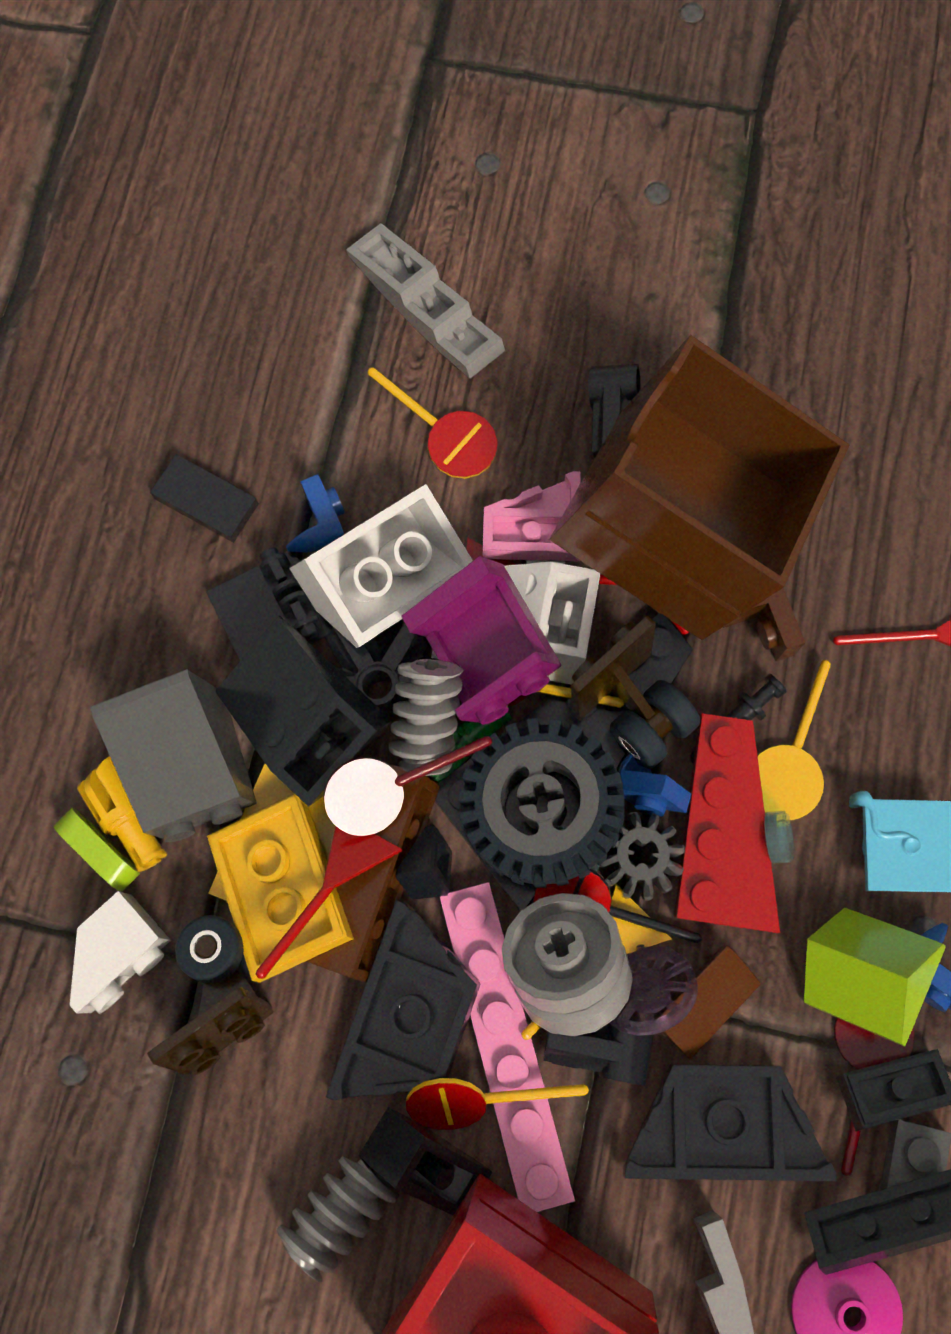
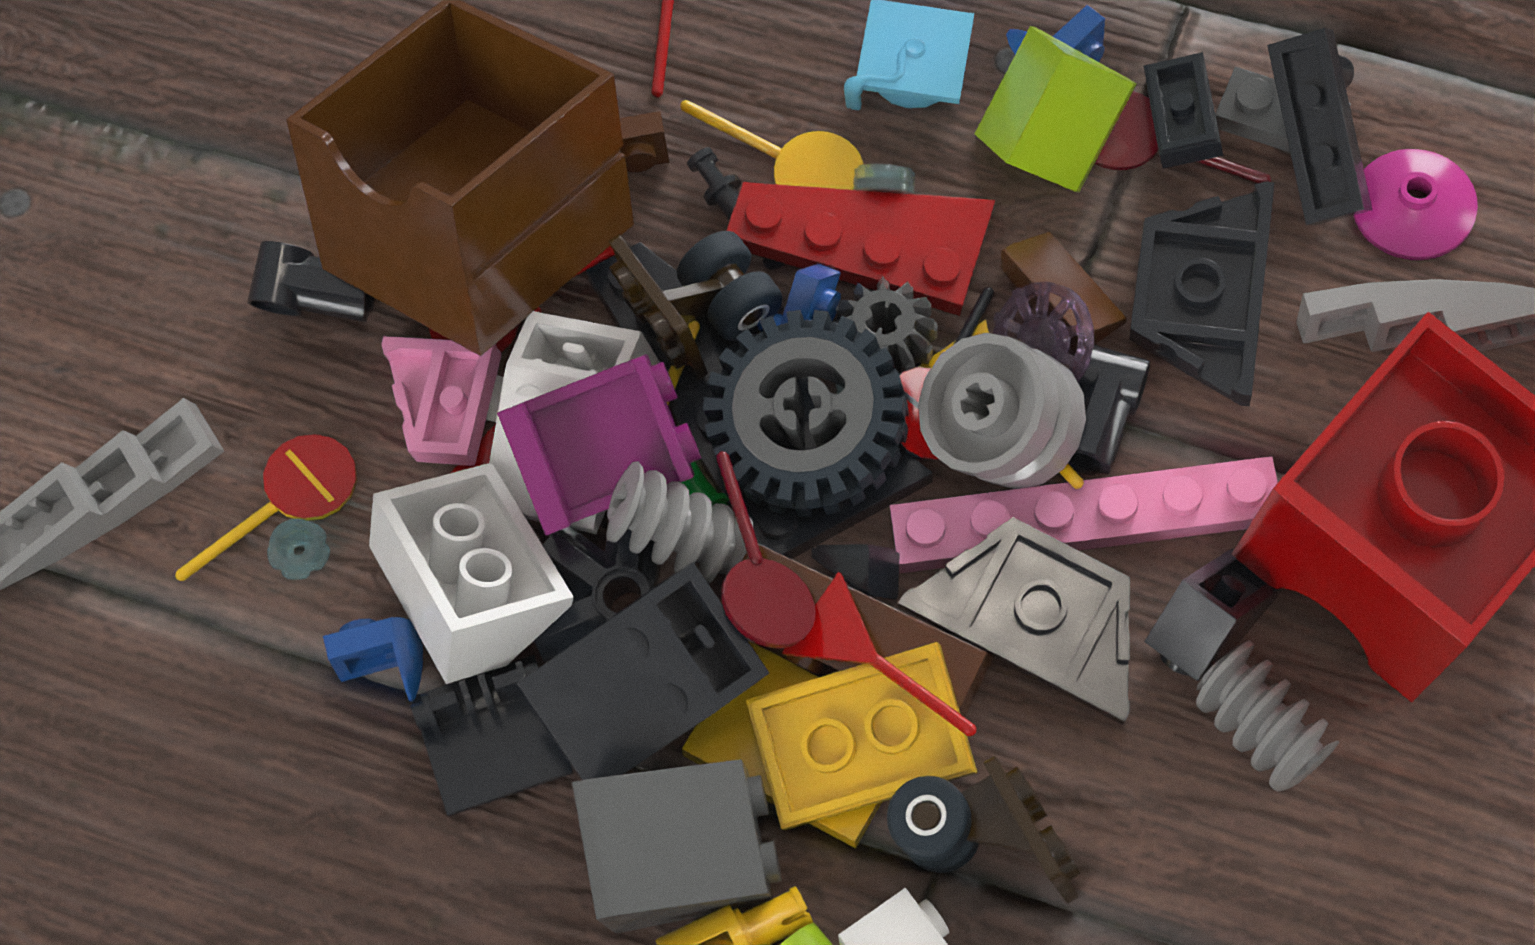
camera: 75 degrees left, 10 degrees down
(204, 498) = (312, 808): black tile -> none
(399, 435) = (291, 535): none -> clear light blue plate
(458, 1103) = (1144, 561): red piece -> none

